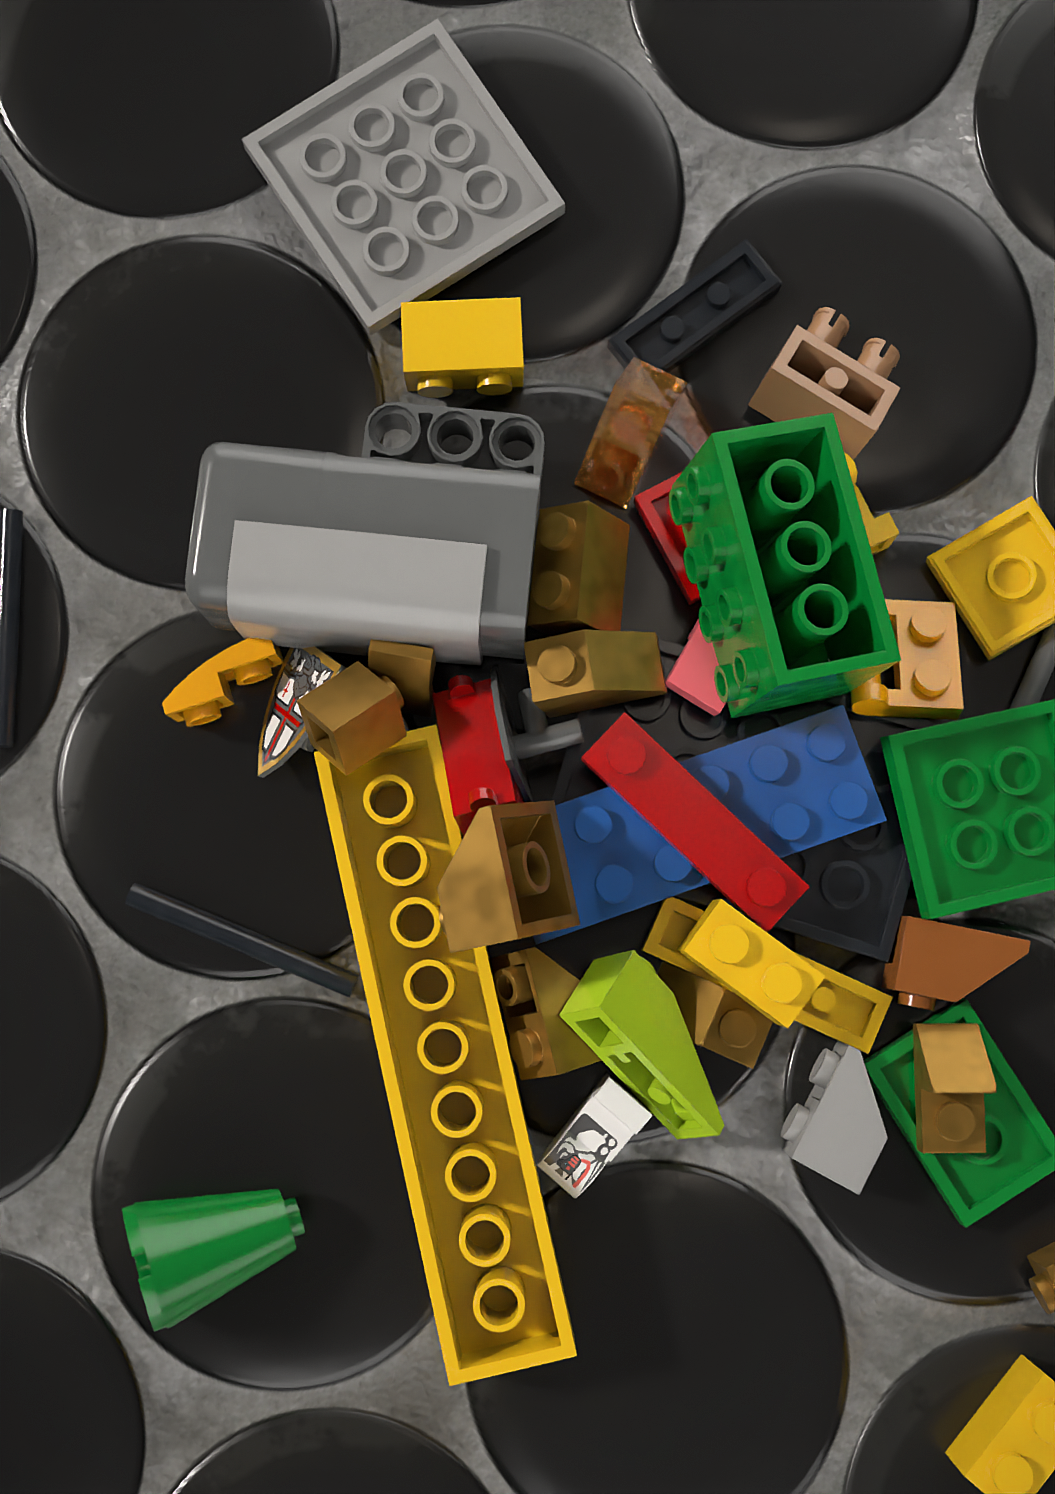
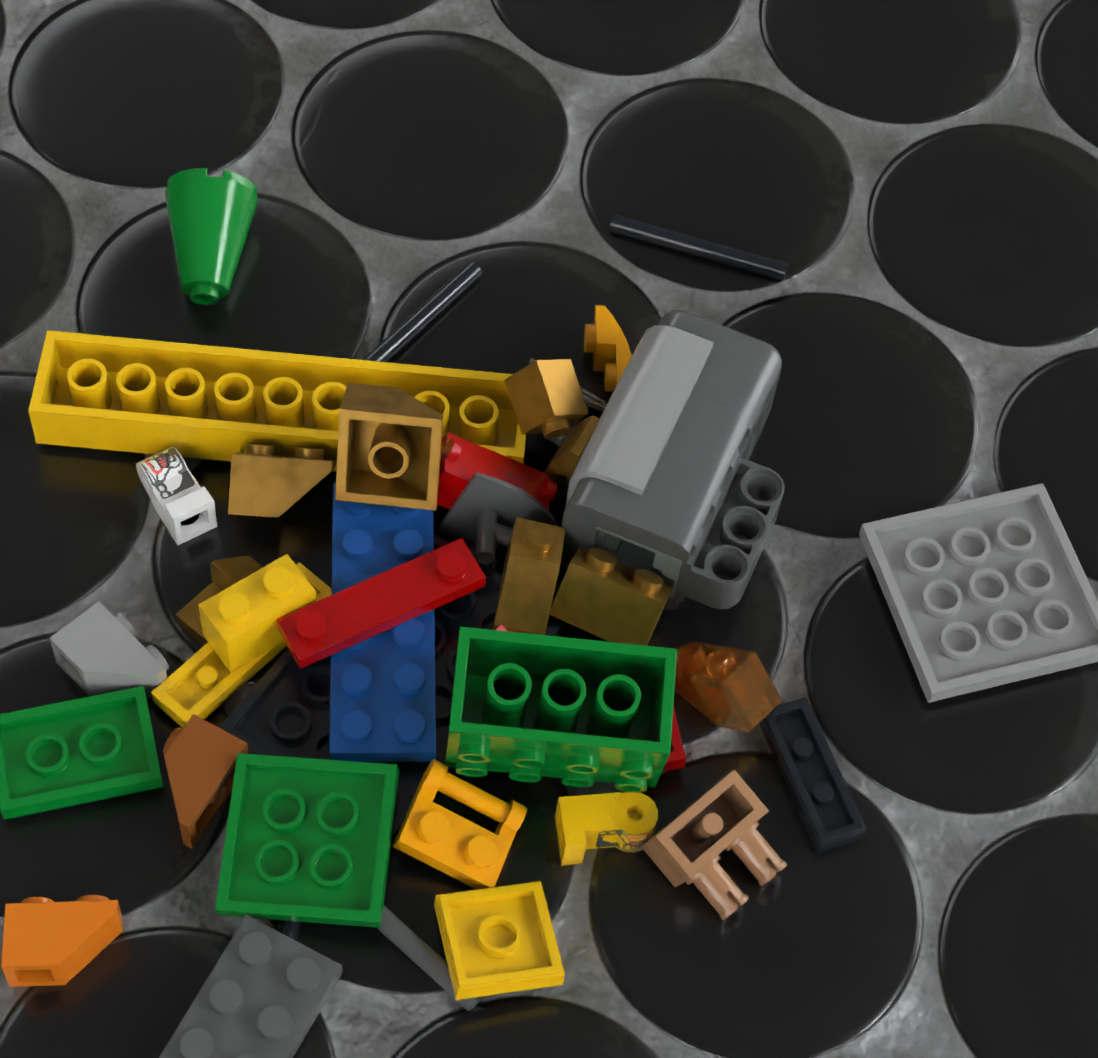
camera: 105 degrees right, 25 degrees down
(462, 346) = (829, 586): yellow brick -> none
(643, 1039) = (240, 526): lime slope -> none
(950, 1087) = (100, 732): pearl gold slope -> none

